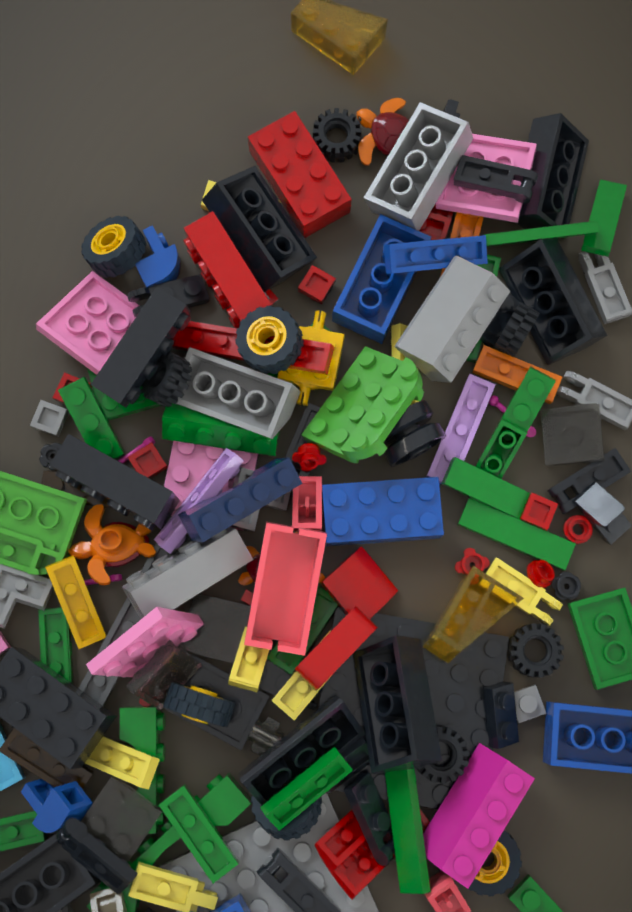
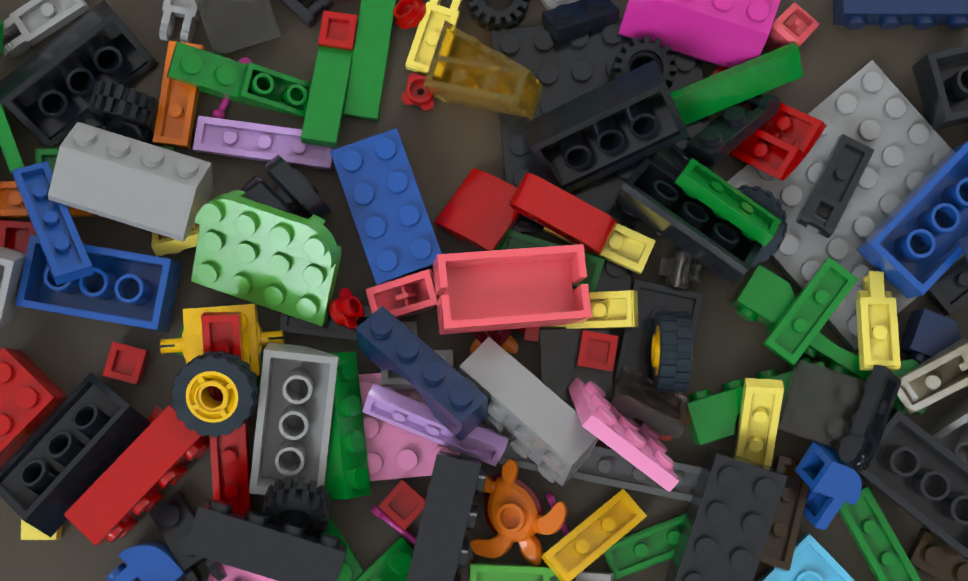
camera: 105 degrees left, 5 degrees up
(219, 646) = (597, 351): none -> red plate

